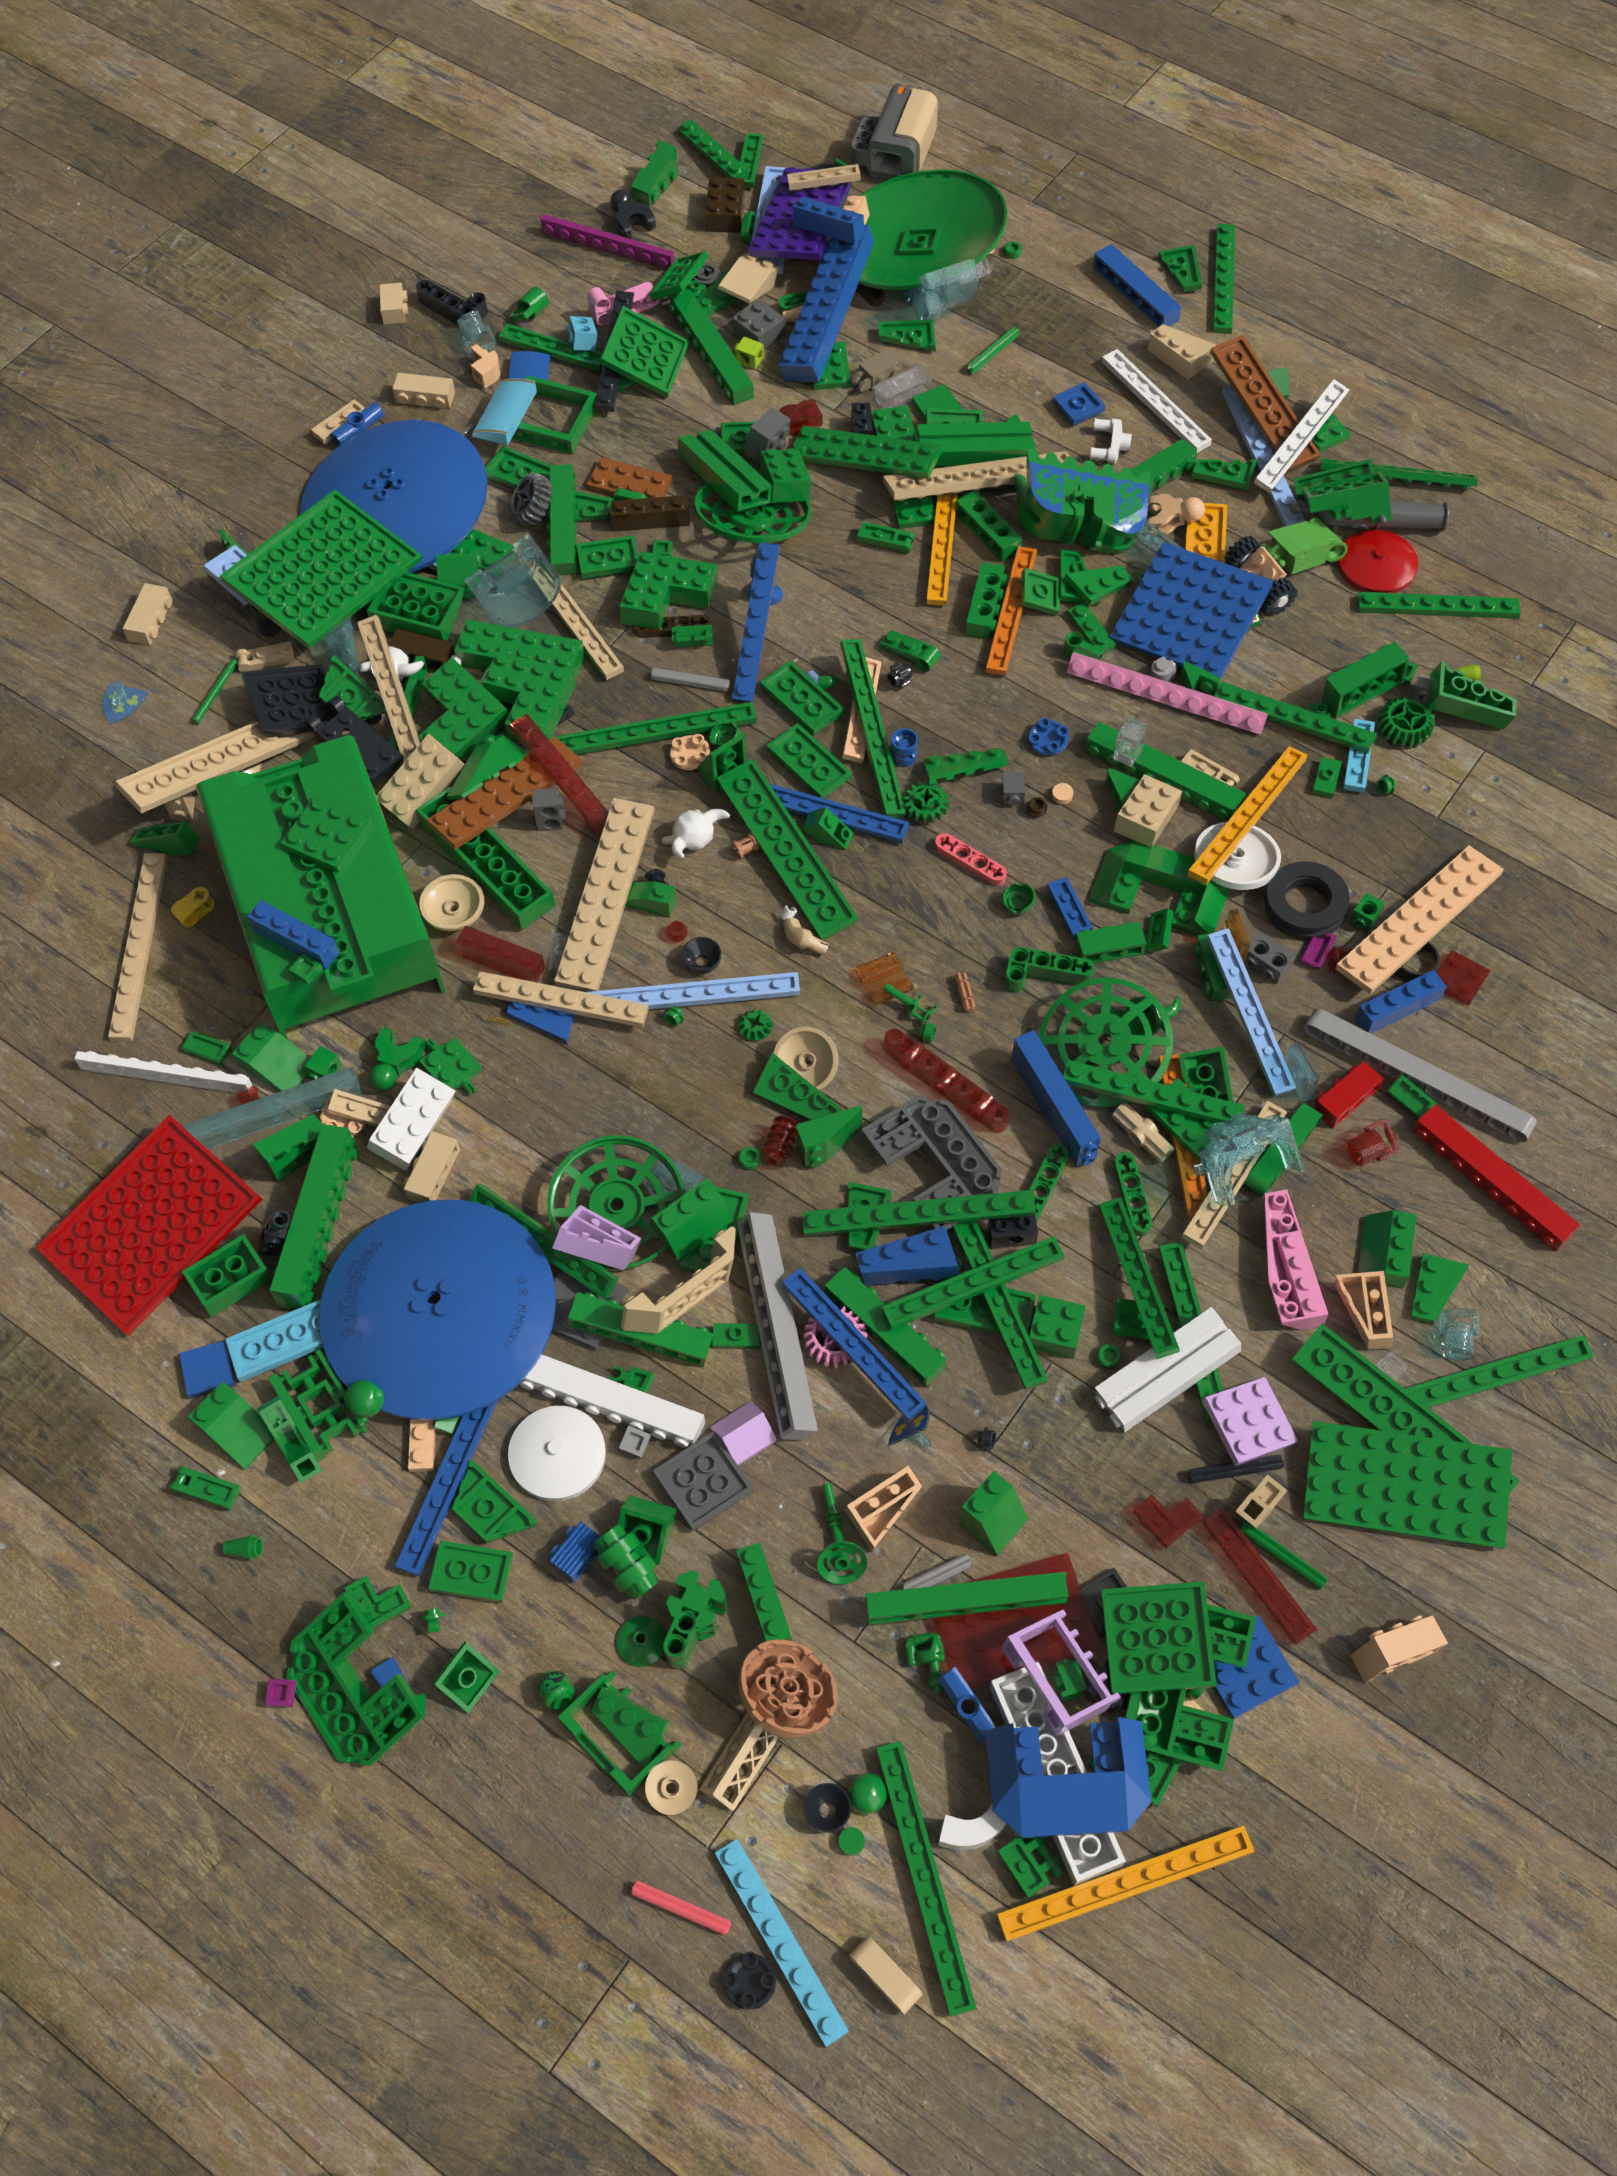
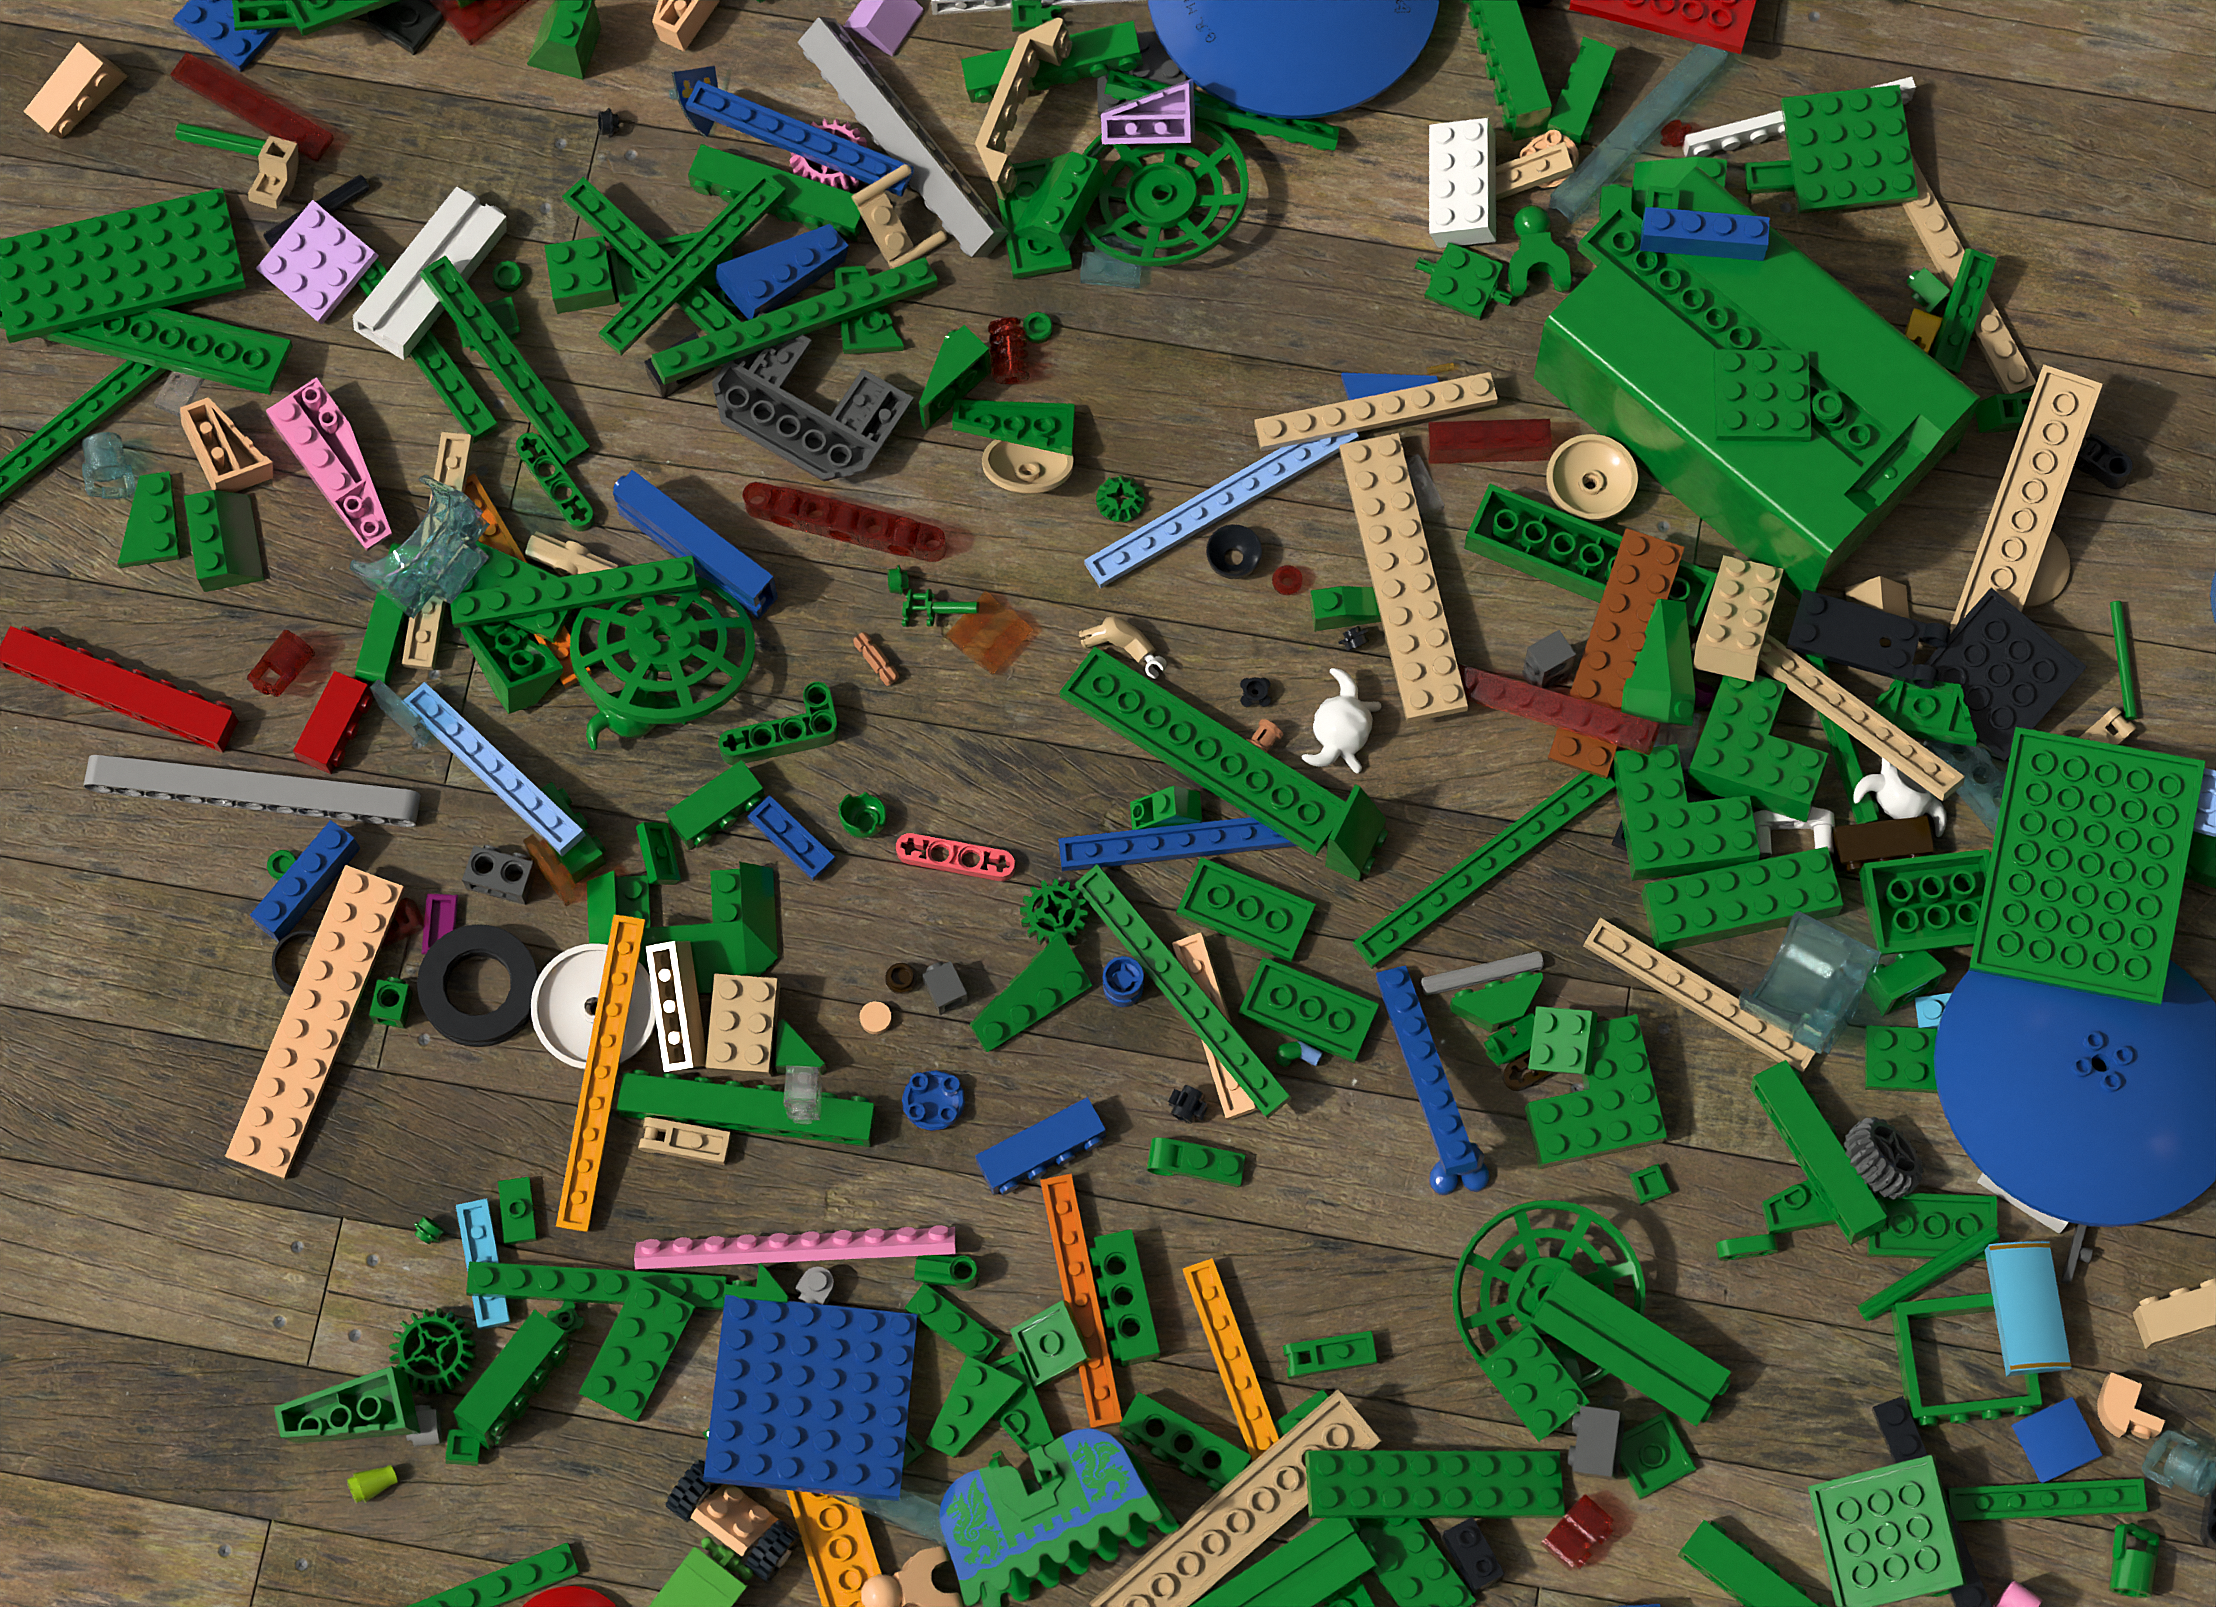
camera: 155 degrees right, 10 degrees up
(149, 1029) = (1849, 149): none -> green plate
(151, 906) = (1963, 309): none -> green plate
(165, 928) = (1929, 291): none -> green brick
(431, 1168) = (1405, 144): tan brick -> none
(542, 451) = (1928, 1272): none -> green axle
(582, 333) = (2006, 1538): medium azure brick -> none
(607, 556) = (1719, 1129): green plate -> none
(614, 474) = (1770, 1289): dark orange plate -> none
(650, 513) = (1700, 1231): dark brown brick -> none
(669, 610) = (1563, 1040): none -> plate
(673, 1016) = (1226, 462): green plate -> none
(689, 657) = (1498, 1003): none -> green slope
(689, 751) = (1417, 852): light nougat dish -> none
(723, 733) = (1380, 891): green hair -> none
(734, 871) = (1251, 684): none -> black plate
(736, 1336) = (947, 115): green plate -> none
(820, 1257) = (886, 225): none -> tan plate
(996, 688) = (1041, 1146): none -> blue brick
(1048, 1184) = (668, 448): green beam -> none
(1167, 1525) = (372, 115): clear red plate -> none
(1186, 830) = (676, 1005): none -> tan brick
(1282, 676) = (637, 1349): none -> green plate
(1410, 1097) = (251, 754): green plate -> none
(1411, 1025) = (279, 863): none -> green tile
(1462, 977) = (238, 965): clear red plate -> none

